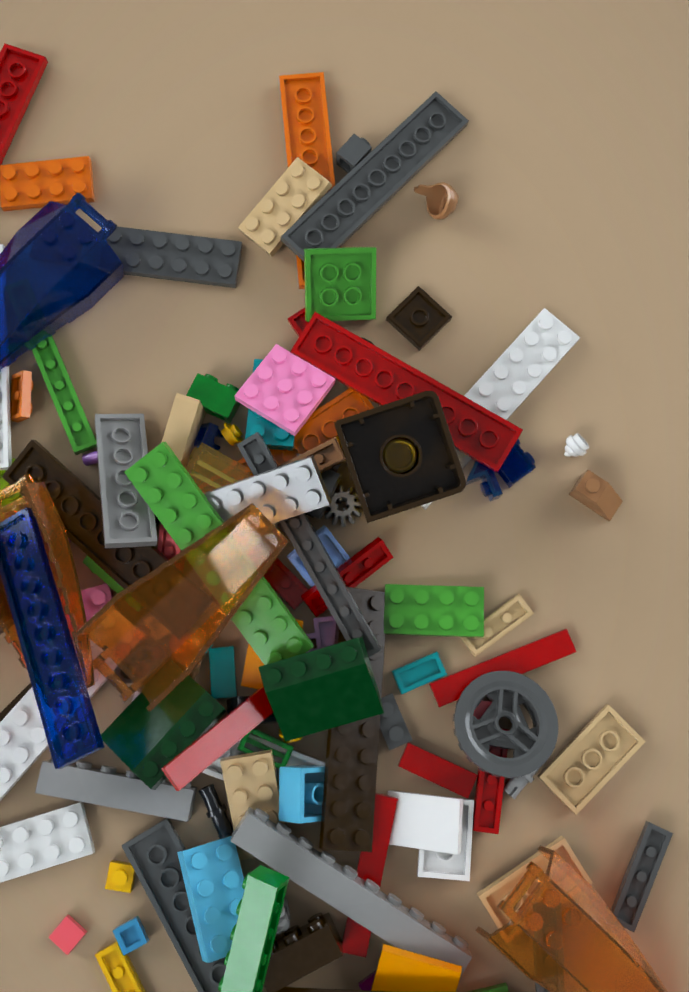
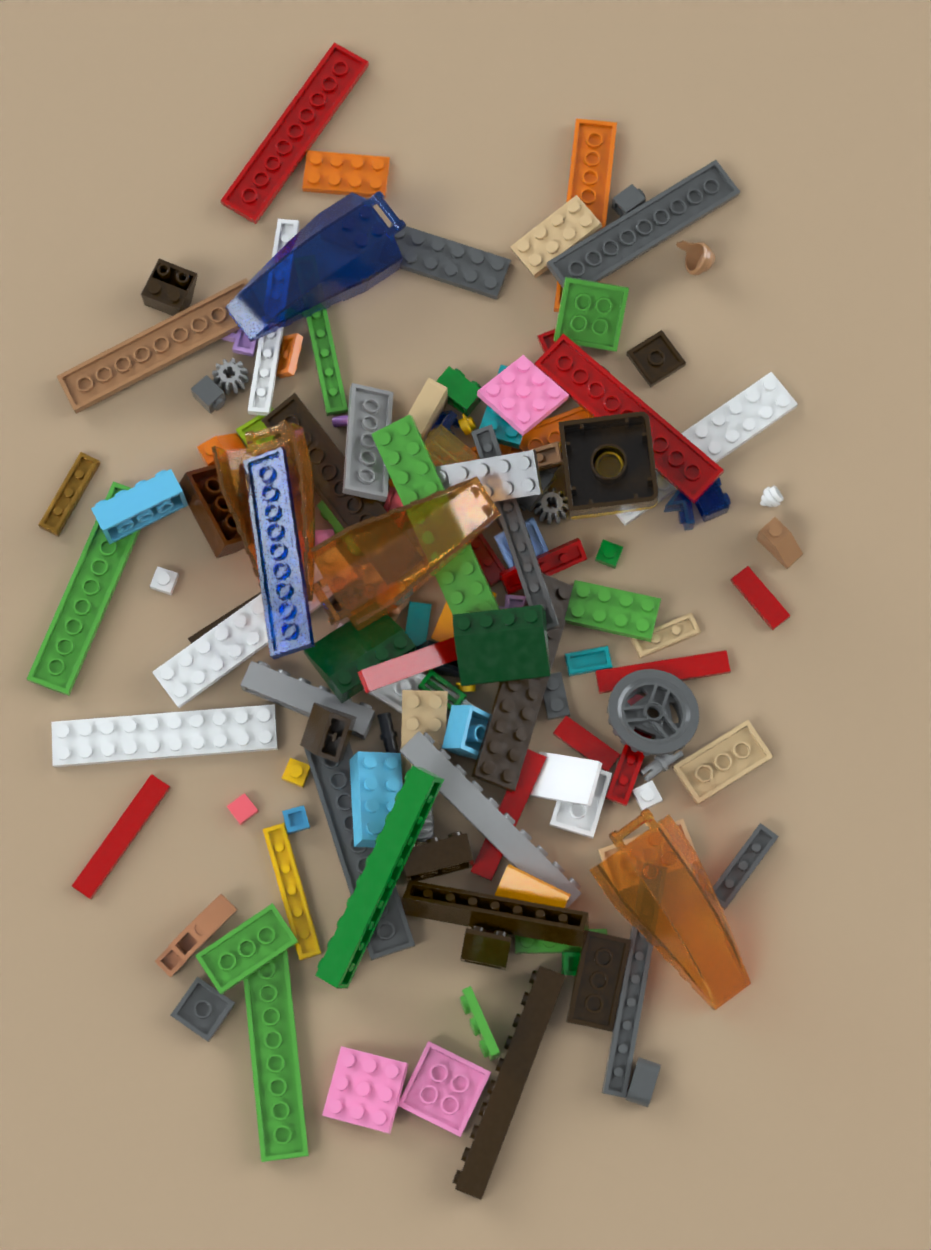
camera: 15 degrees right, 5 degrees down
(145, 833) = (328, 732): none -> dark brown slope
(415, 545) = (609, 554): none -> green plate
(517, 815) = (647, 795): none -> white plate
(589, 560) = (760, 598): none -> red tile

